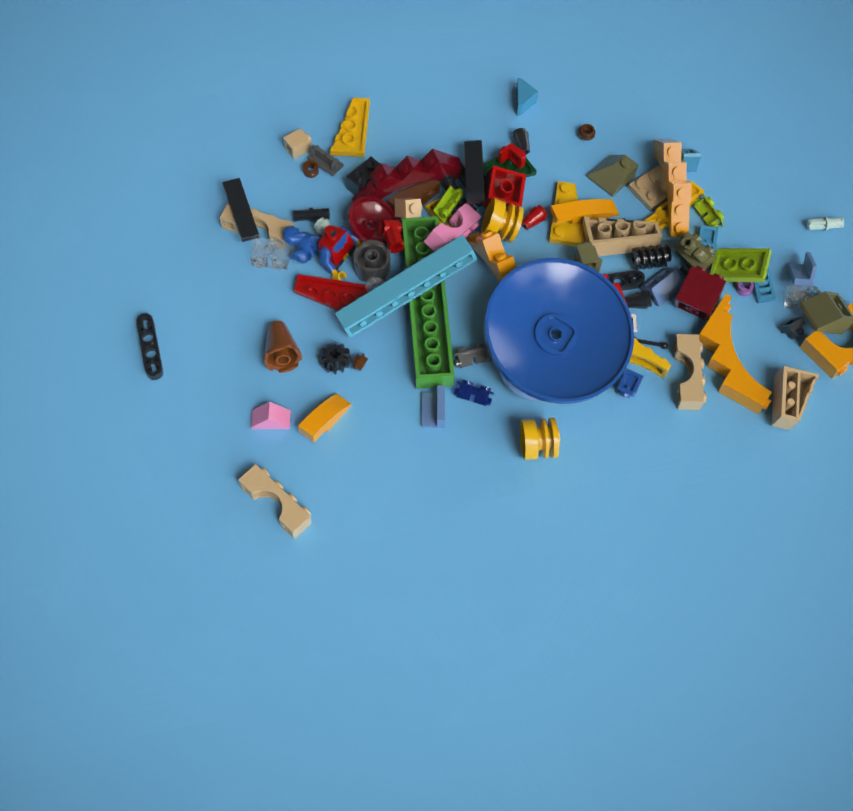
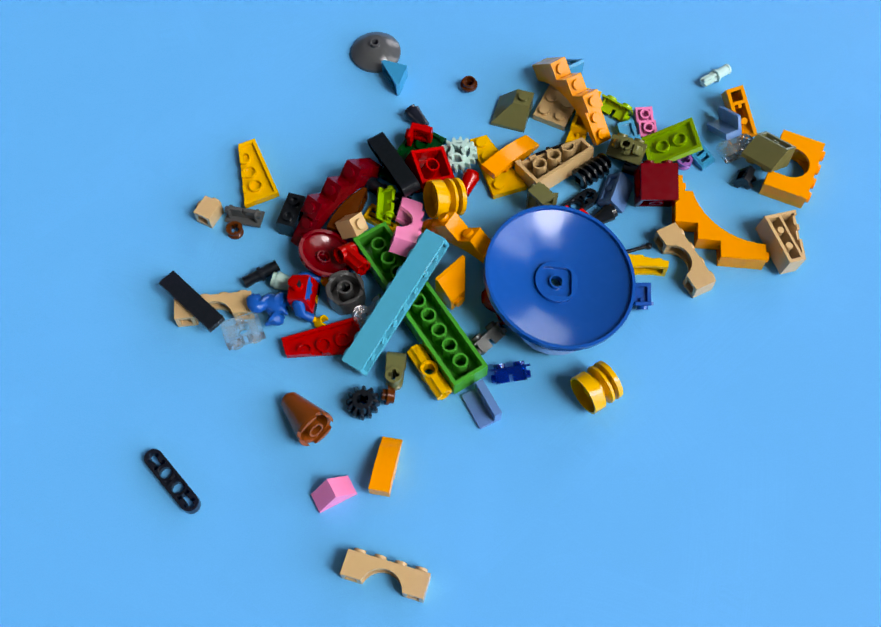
camera: 25 degrees left, 0 degrees up
(378, 344) = (395, 368): none -> olive piece
(404, 349) = (435, 381): none -> yellow piece
(467, 295) = (451, 284): none -> light orange slope
(520, 64) = (372, 49): none -> dark grey dish
(540, 189) = (459, 155): none -> light aqua gear
(731, 234) = (645, 121): none -> bright pink slope
(826, 264) = (736, 100): none -> light orange slope

